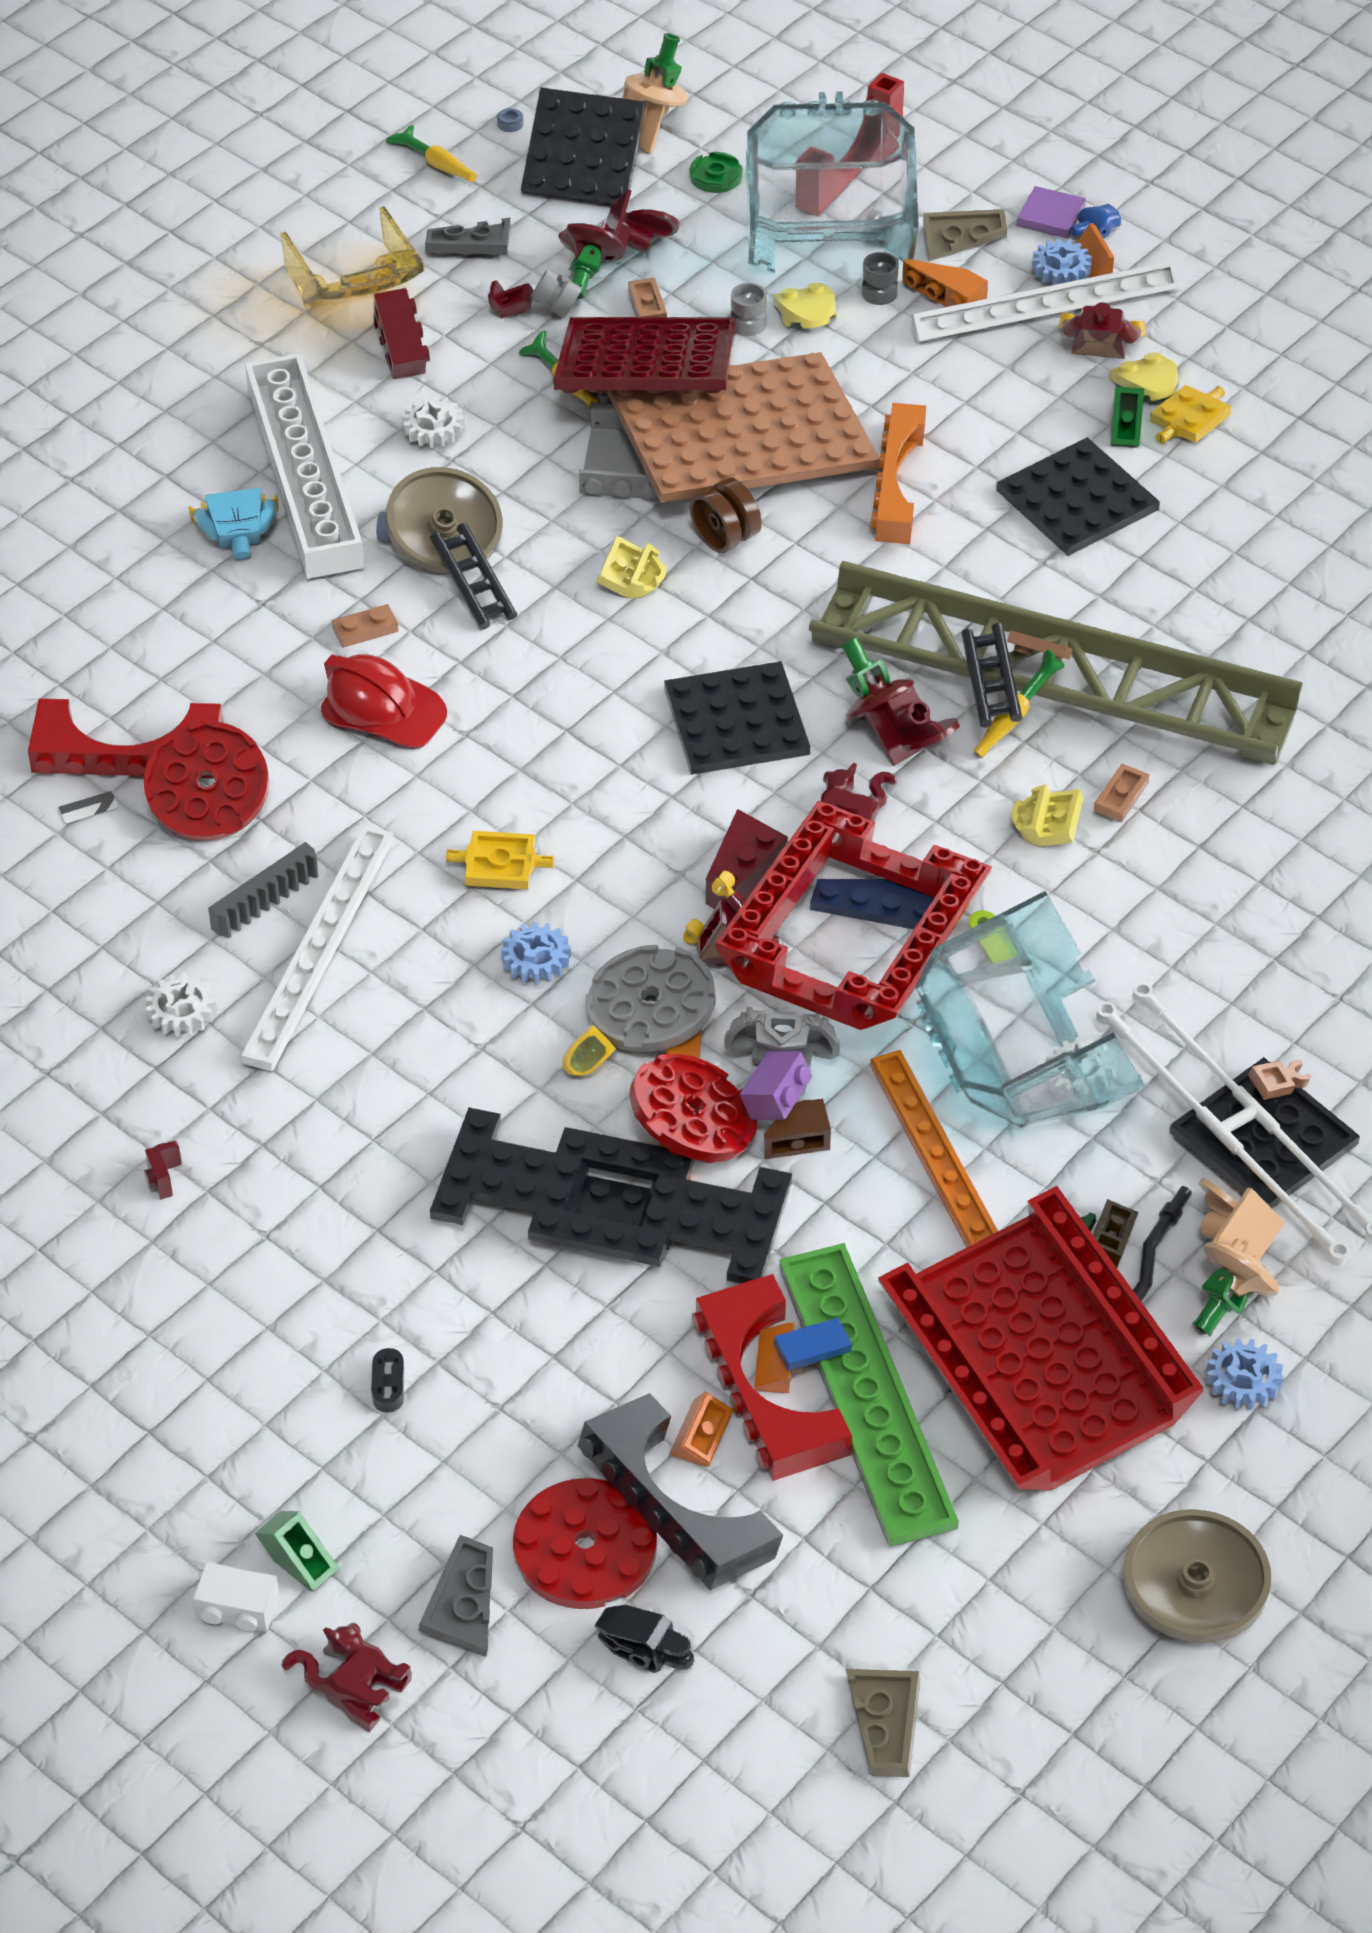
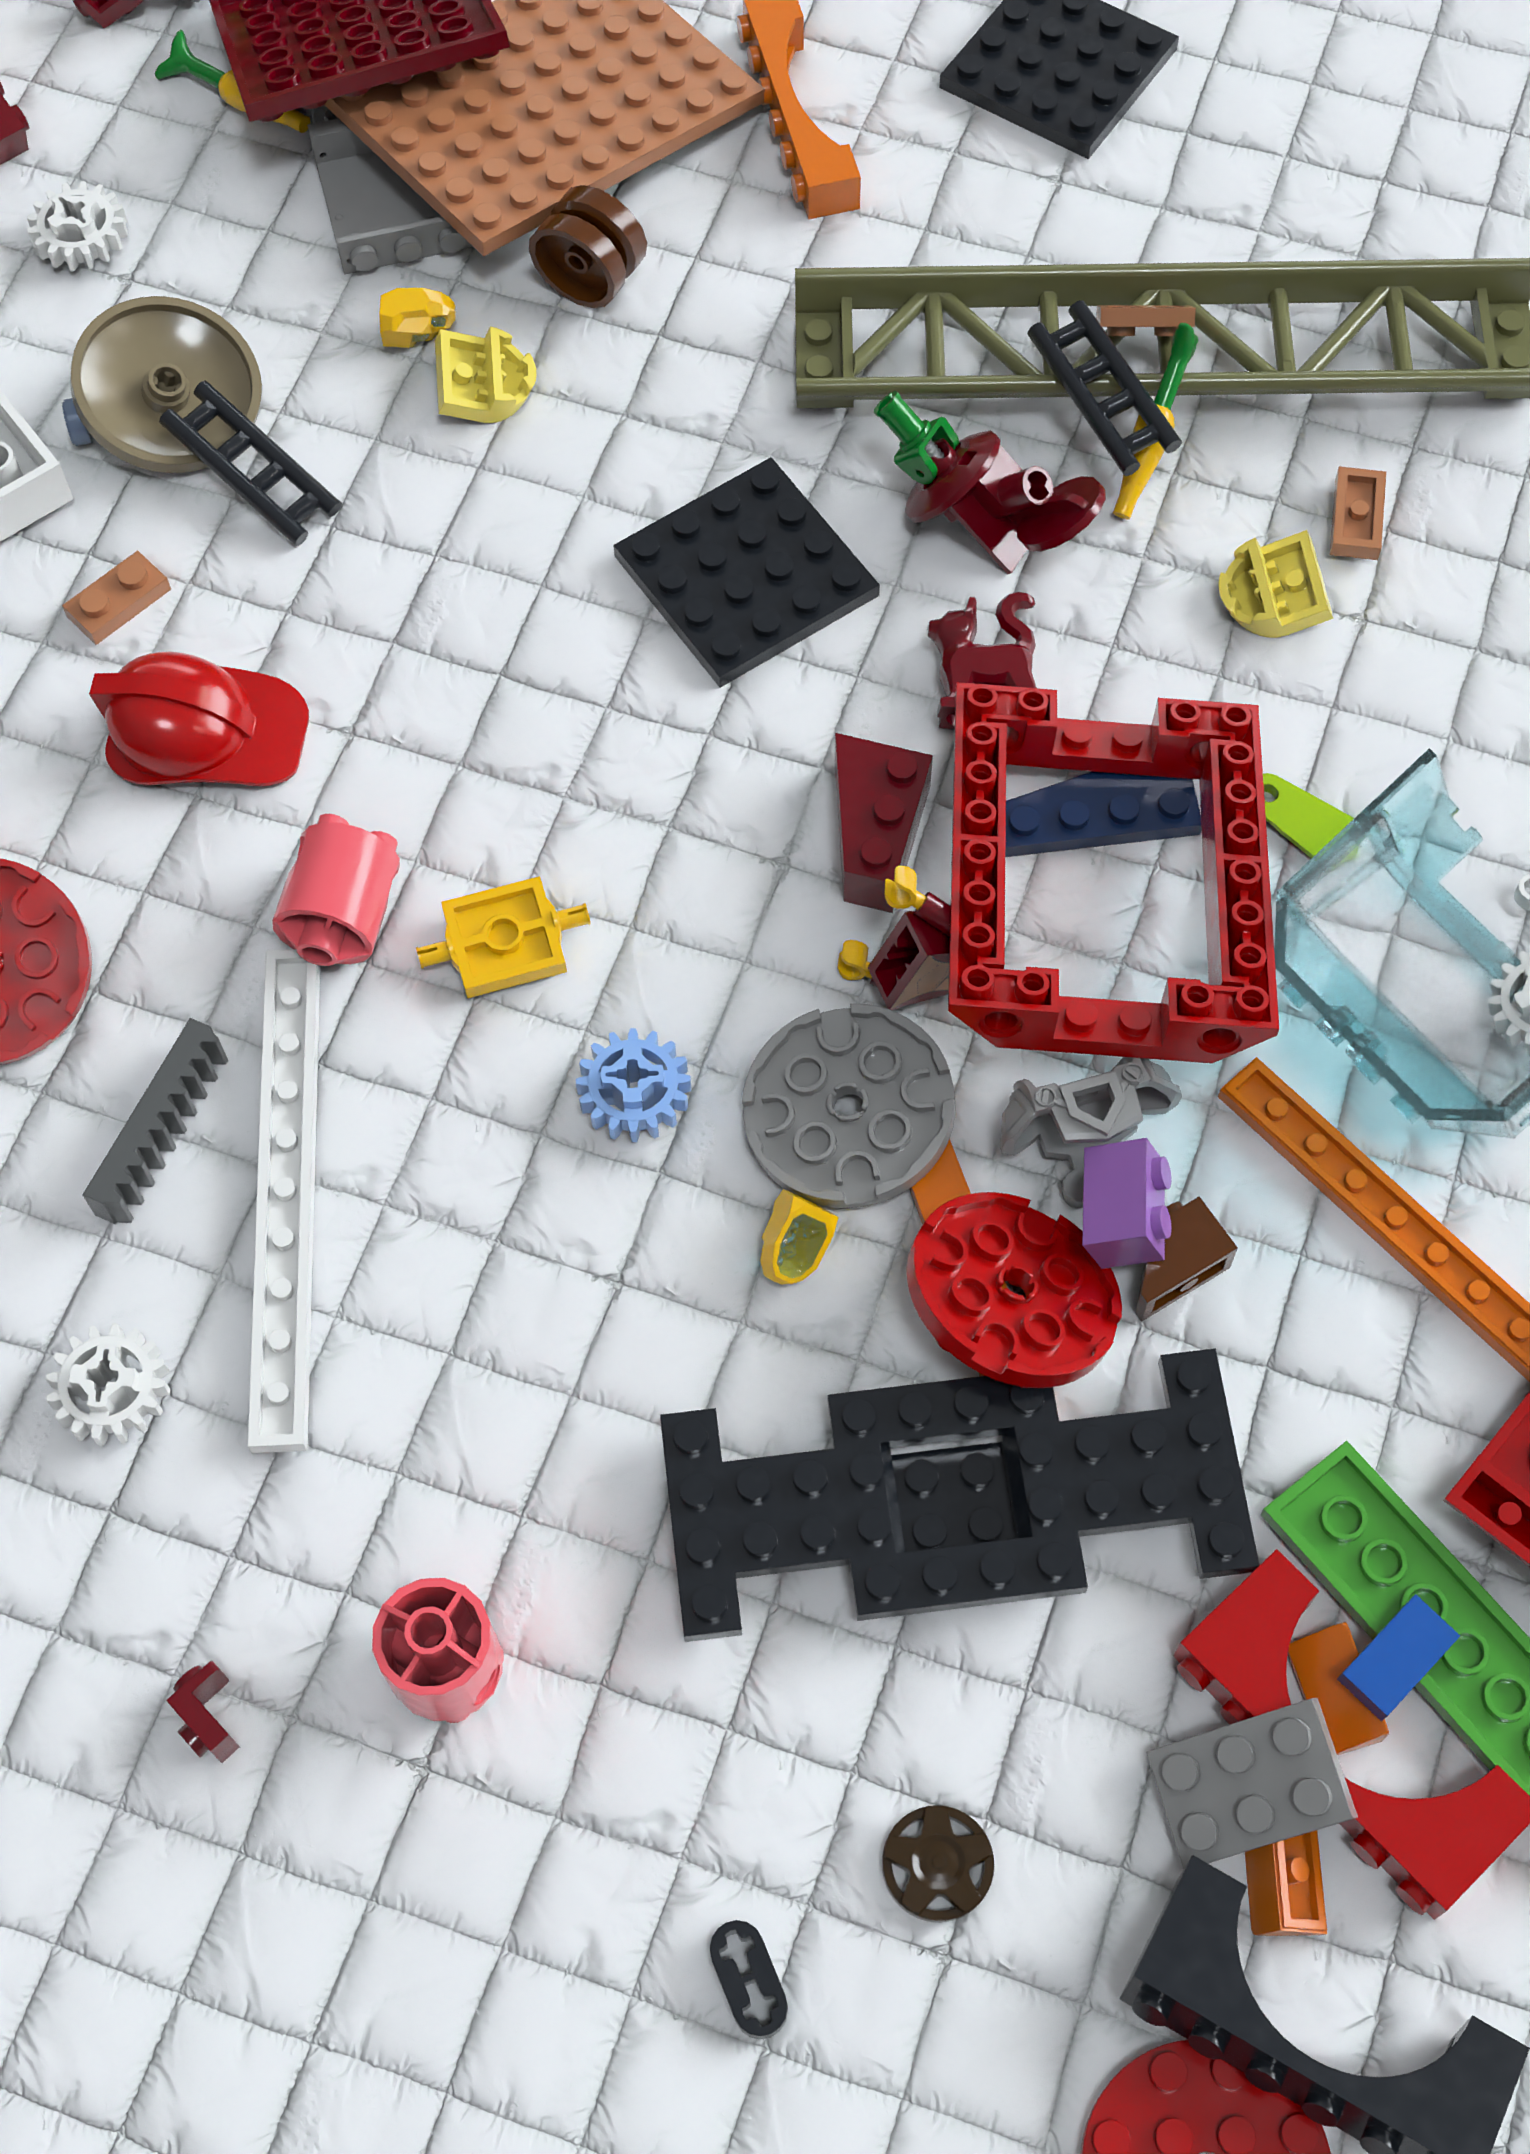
camera: 20 degrees left, 15 degrees up
(296, 1171) = (437, 1649): none -> coral cylinder
(415, 805) = (336, 892): none -> coral cylinder
(515, 1364) = (938, 1863): none -> dark brown wheel
(605, 524) = (414, 316): none -> yellow rock
(701, 1372) = (1252, 1783): none -> light grey plate

